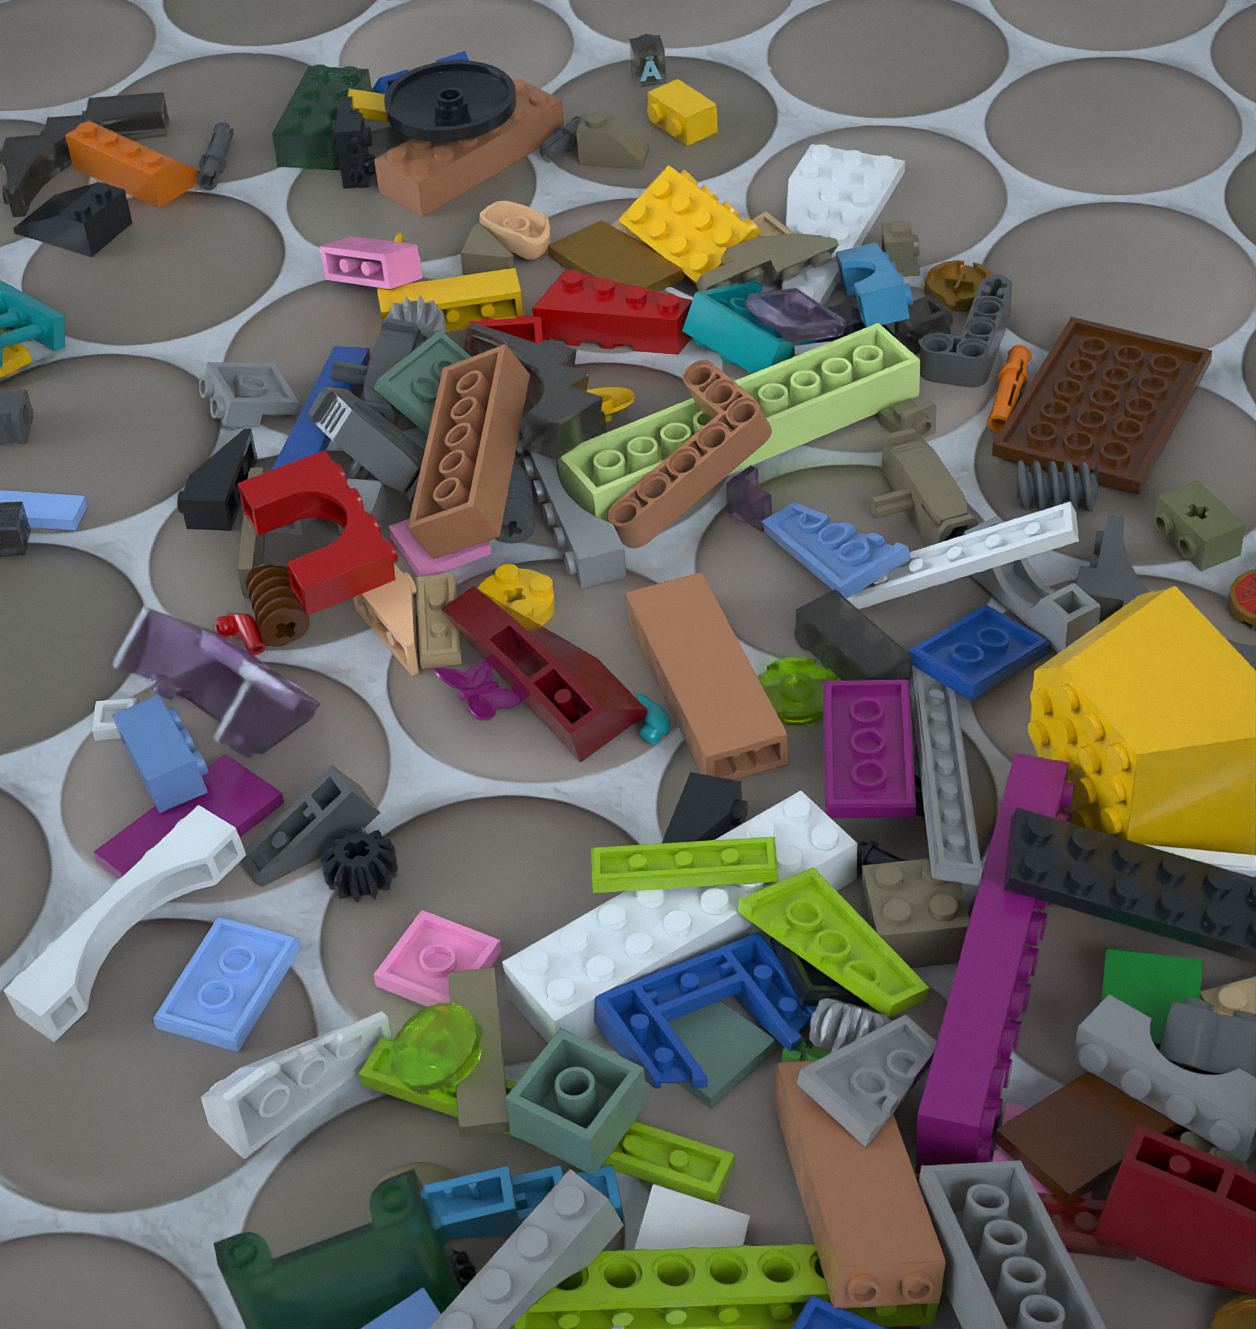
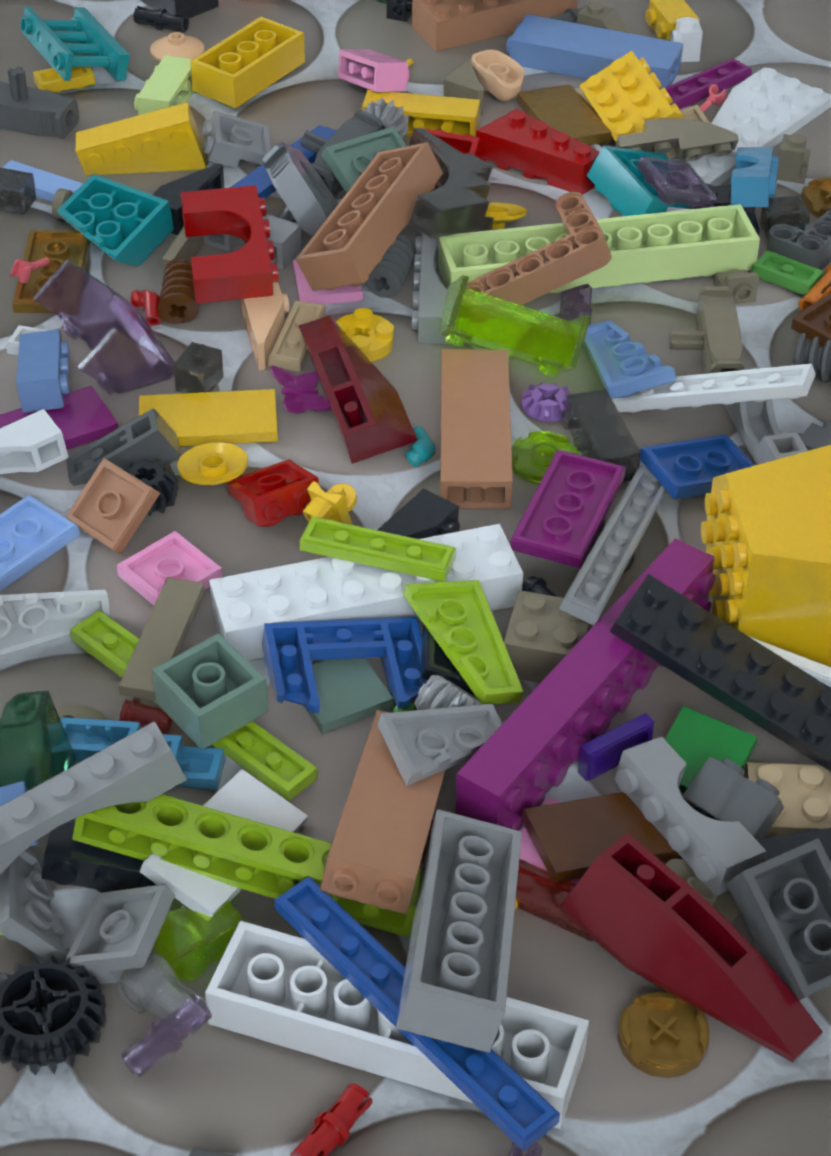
camera: 15 degrees right, 0 degrees up
(72, 628) = (23, 268): none -> coral hand
(73, 257) = (161, 19): none -> black pin
(74, 529) = (59, 199): none -> dark tan tile
(95, 614) = (57, 247): none -> pearl gold tile
(109, 291) = (176, 45): none -> light nougat dish
(128, 349) = (167, 85): none -> yellowish green brick
(136, 427) = (143, 144): none -> yellow wedge
(156, 531) = (119, 219): none -> teal wedge
(212, 288) = (247, 62): none -> yellow brick
(332, 901) = (112, 506): none -> nougat tile
(346, 698) = (198, 369): none -> clear smoke brick
(392, 749) = (217, 416): none -> yellow tile
(423, 811) = (212, 463): none -> yellow dish
(436, 1048) = (130, 625): clear neon green tile -> none
(500, 1153) = (145, 714): none -> clear red pin
(515, 825) = (273, 492): none -> red plate
(595, 826) = (331, 505): none -> yellow hips
(602, 172) = (586, 49): none -> medium blue brick
(690, 544) = (503, 325): none -> clear neon green windscreen
(710, 134) = (690, 34): none -> white brick
(758, 176) = (697, 86): none -> magenta tile
(772, 197) = (714, 98): none -> coral hand
(772, 631) = (545, 409): none -> medium lavender gear
(958, 390) = (787, 272): none -> bright green plate
(1052, 1020) = (606, 750): none -> dark purple tile

